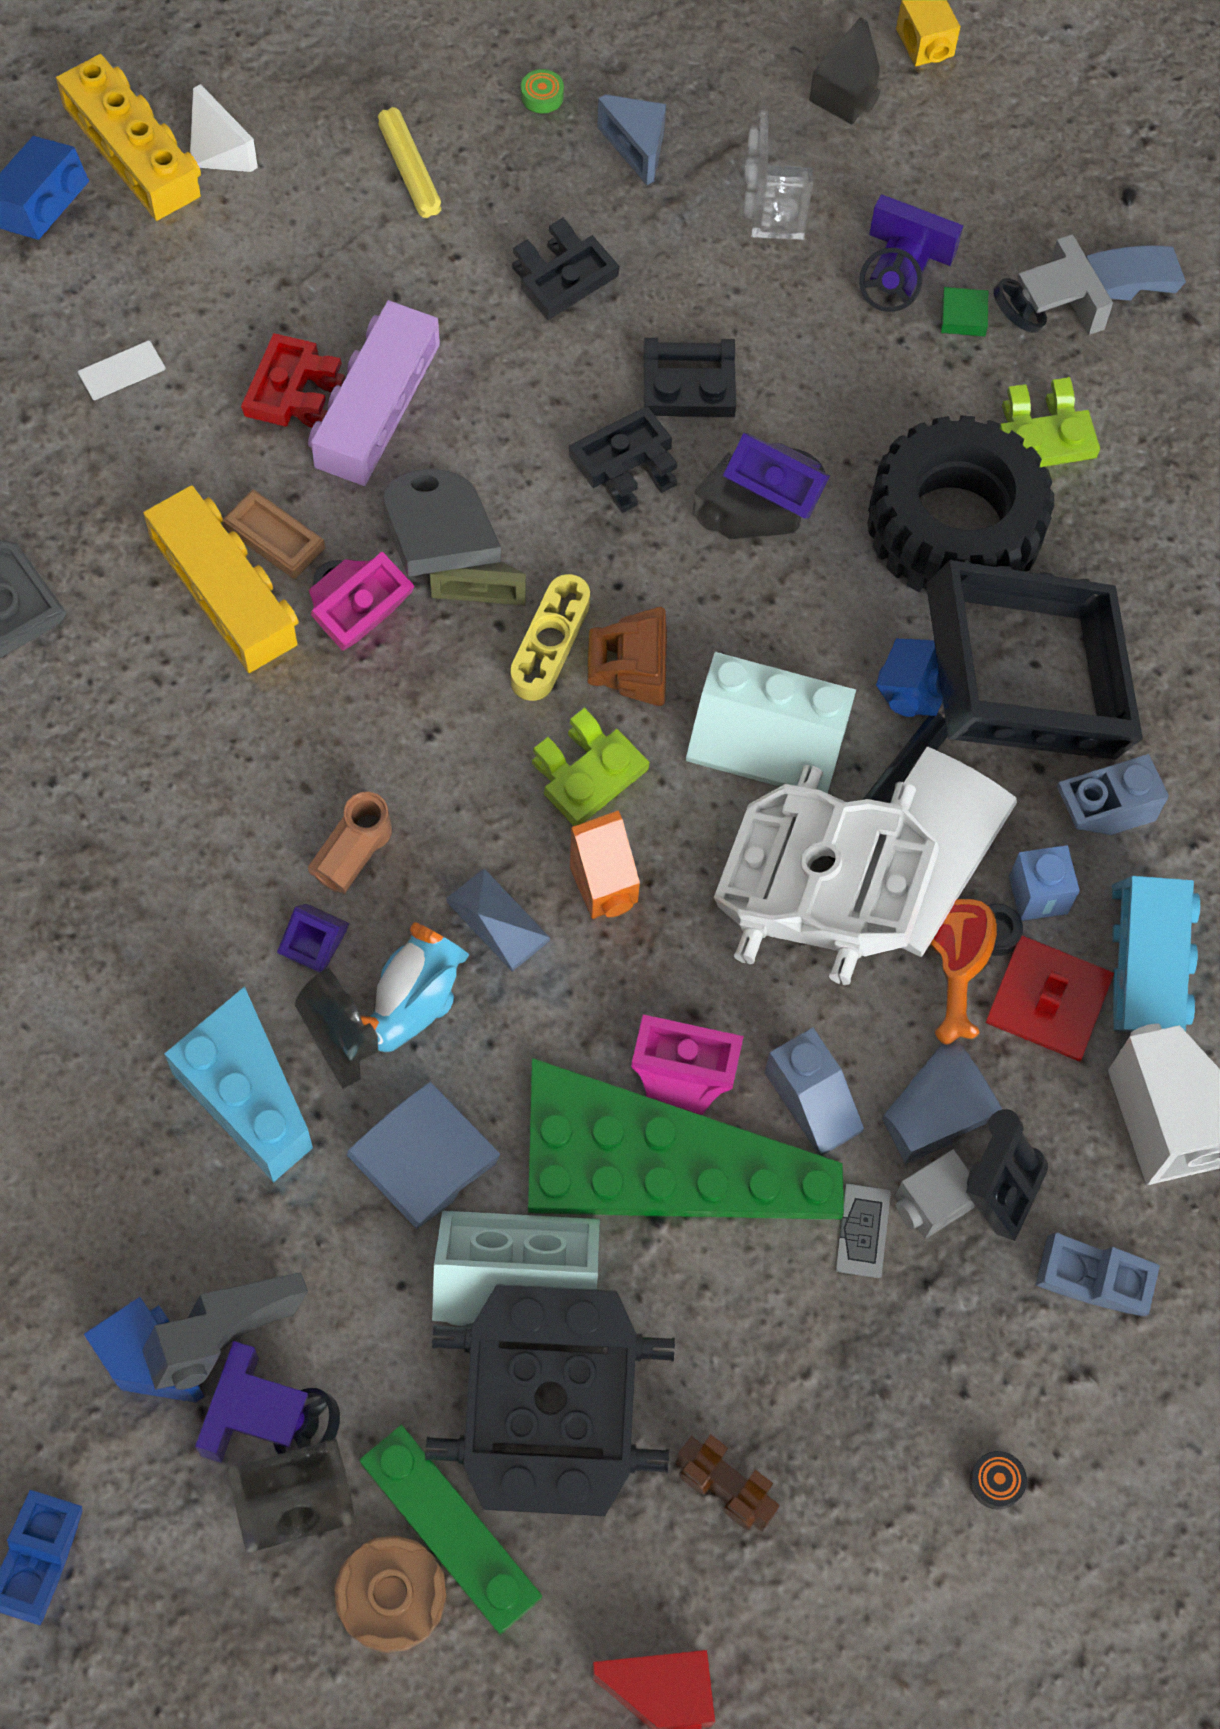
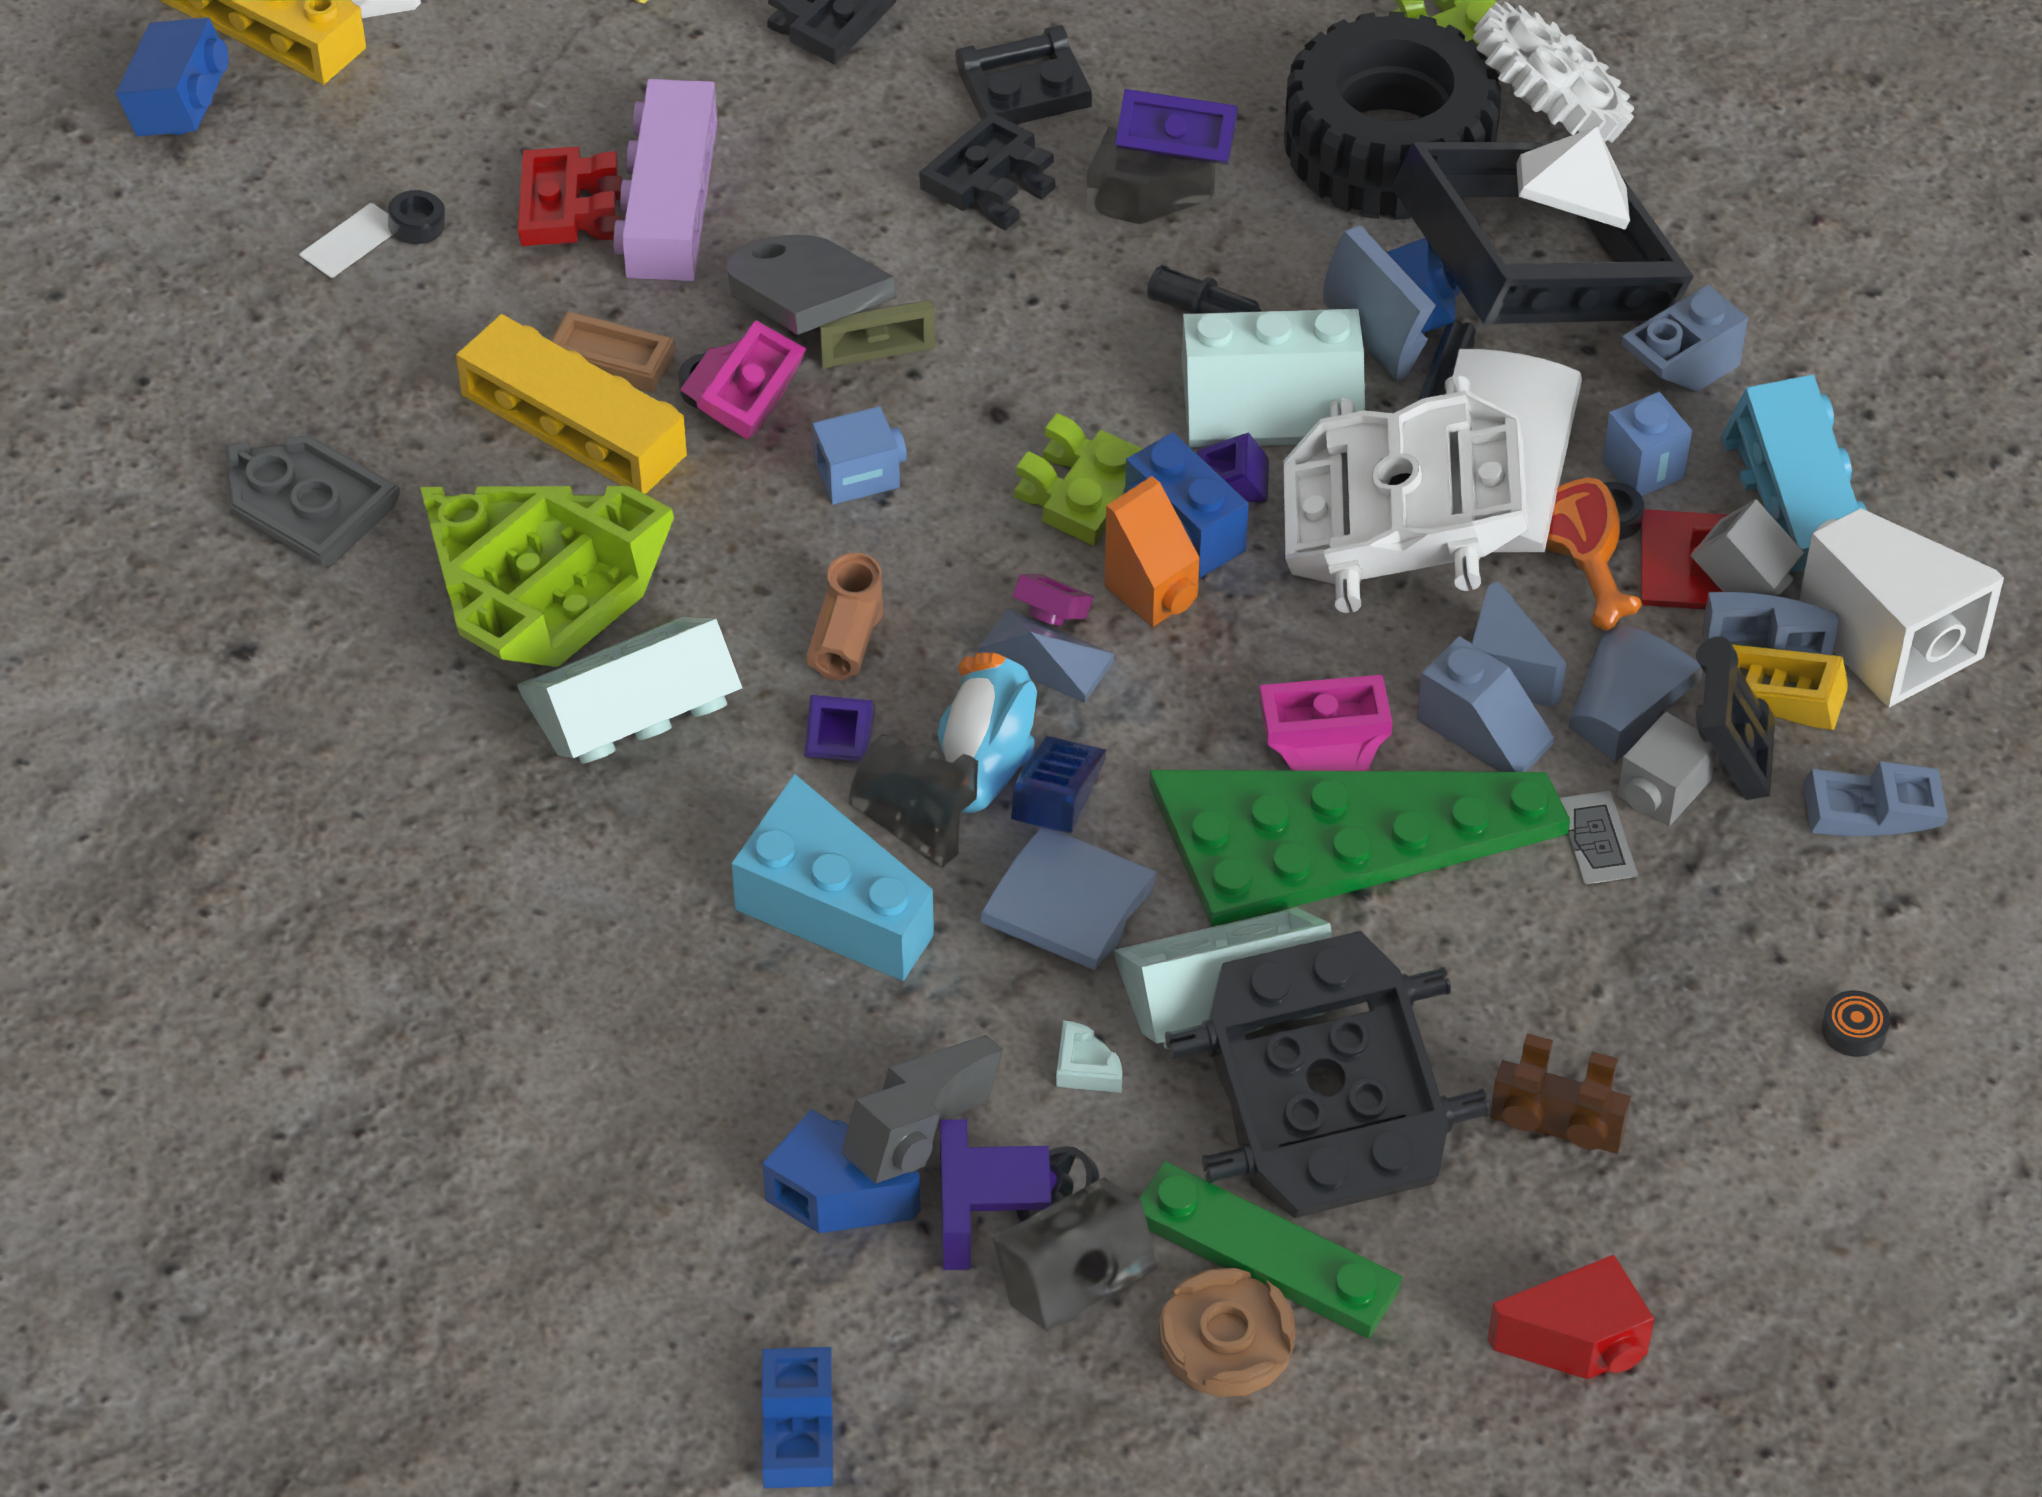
camera: 15 degrees left, 15 degrees down
(130, 726) = (543, 567): none -> lime wedge
(163, 852) = (632, 688): none -> light aqua slope
(175, 366) = (416, 217): none -> black tile
(381, 1306) = (1086, 1061): none -> light aqua tile
(420, 693) = (858, 454): none -> medium blue brick
(435, 1072) = (1056, 784): none -> clear blue slope
(518, 874) = (1051, 599): none -> magenta plate
(552, 656) = (991, 383): light yellow beam -> none
(641, 656) = (1090, 355): dark orange piece -> none
(653, 822) = (1204, 502): none -> blue brick
(709, 796) = (1241, 465): none -> dark purple slope
(746, 629) = (1194, 294): none -> black axle
(857, 1042) = (1516, 641): none -> sand blue slope
(876, 688) = (1387, 300): none -> sand blue slope
(1076, 625) = (1576, 178): none -> white slope
(1081, 1019) = (1748, 552): none -> light grey brick
(1089, 1093) = (1770, 622): none -> sand blue slope
(1092, 1135) = (1809, 671): none -> yellow slope
(1104, 510) = (1552, 71): none -> white gear

